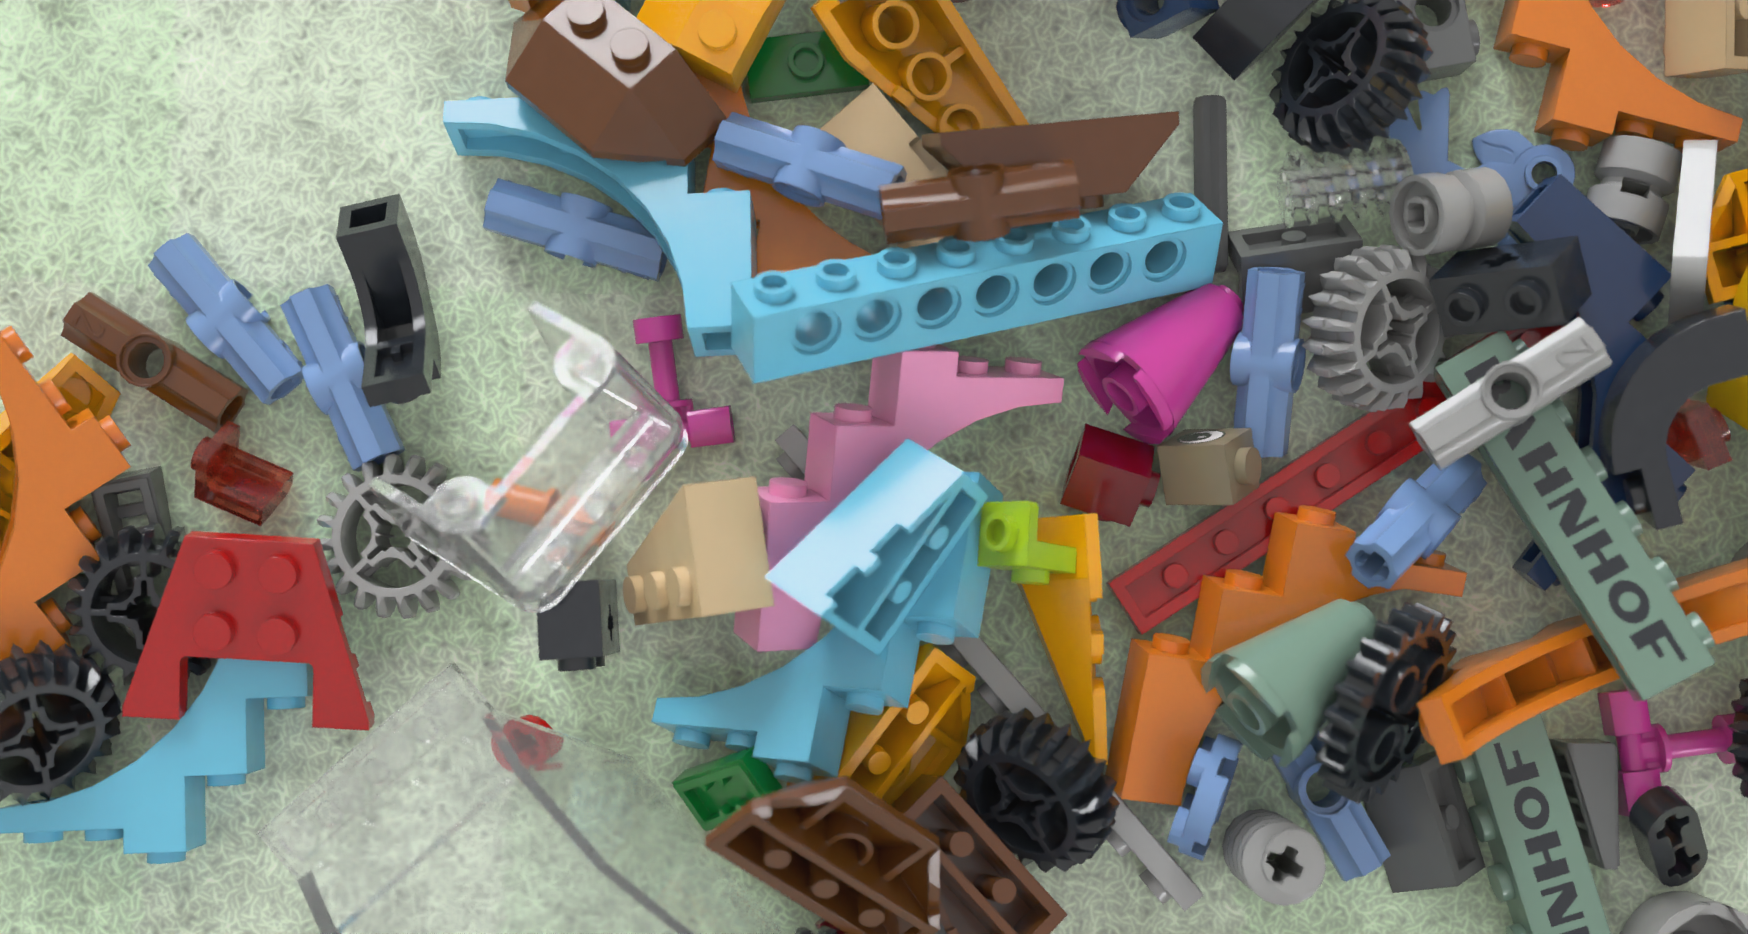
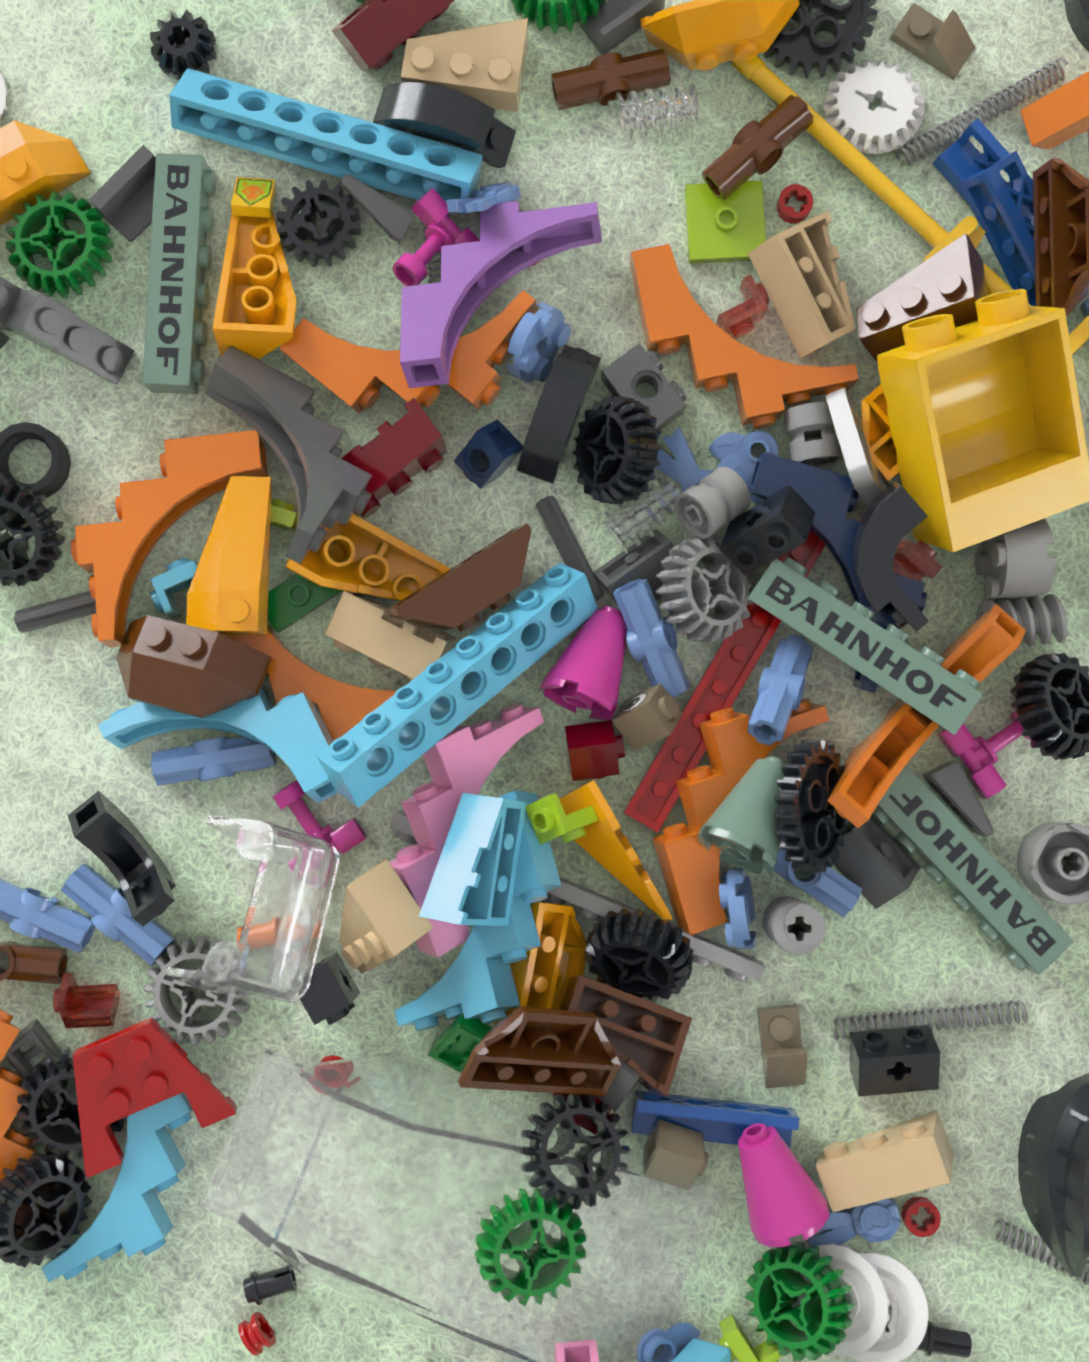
camera: 25 degrees left, 0 degrees up
(804, 164) = (329, 660): medium blue piece -> none
(979, 201) = (436, 637): reddish brown piece -> none
(1544, 373) = (807, 571): light grey piece -> none
(1668, 836) = (1018, 794): black beam -> none

